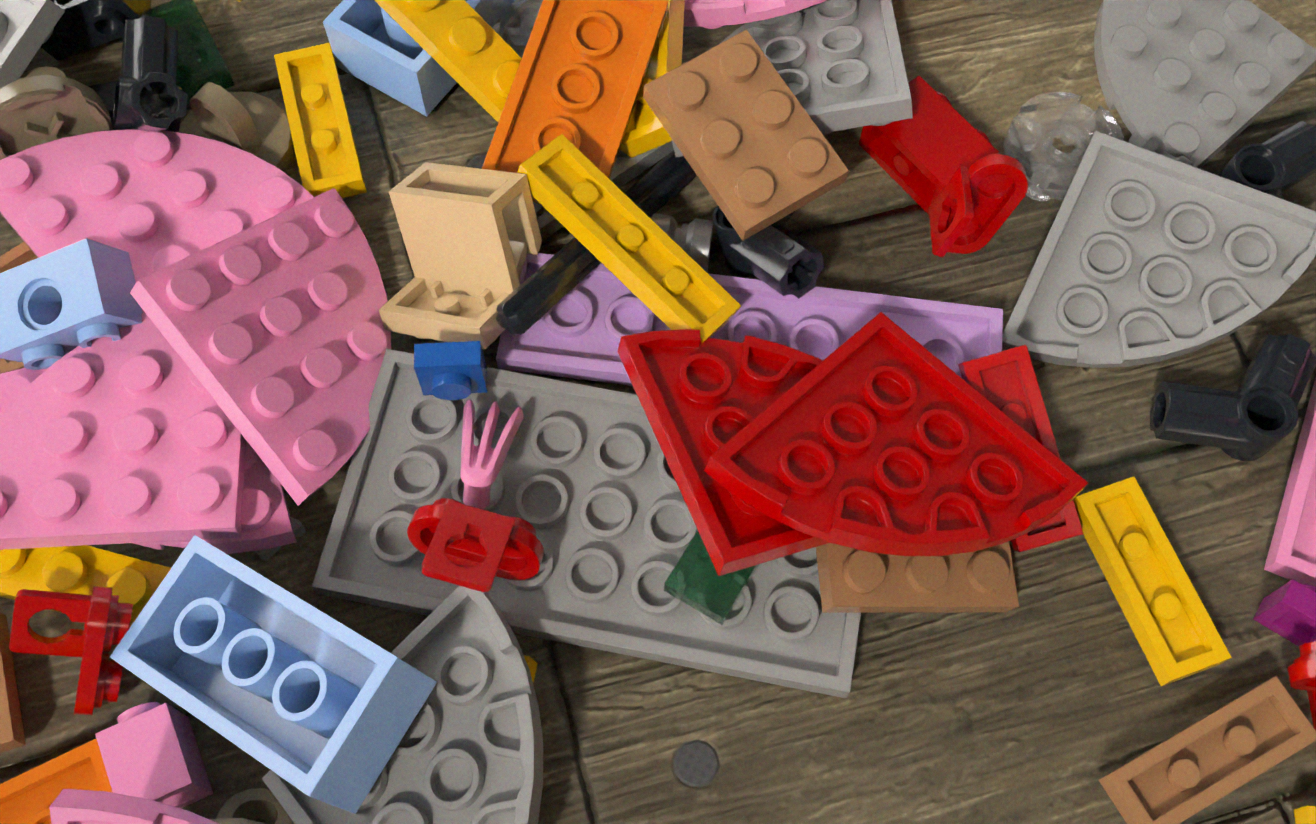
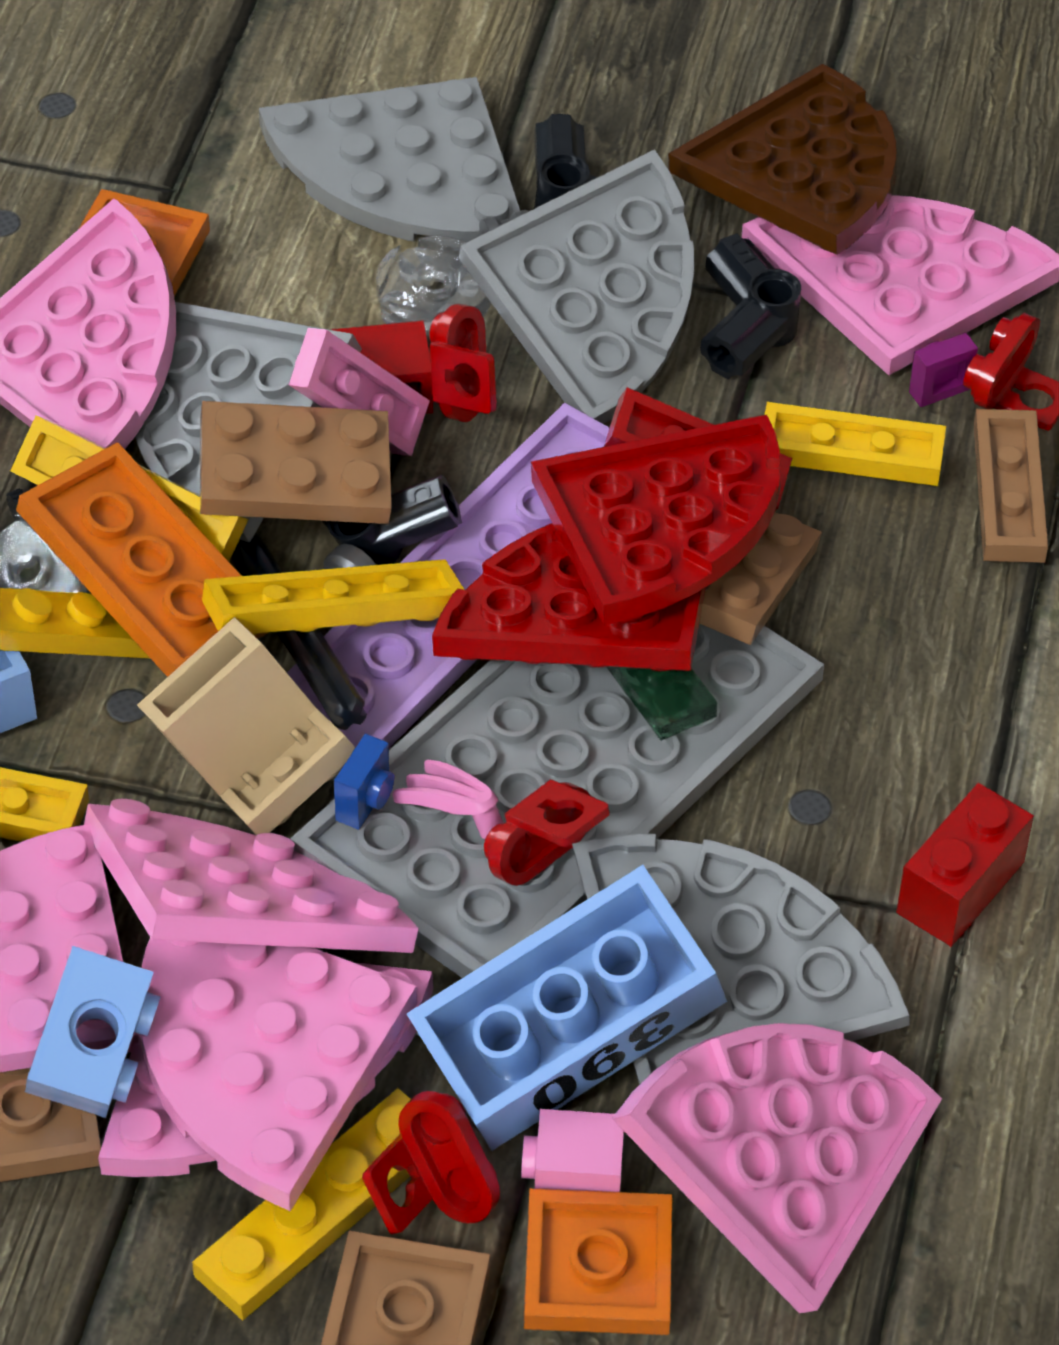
camera: 60 degrees left, 15 degrees down
(862, 138) = (343, 378): none -> bright pink plate

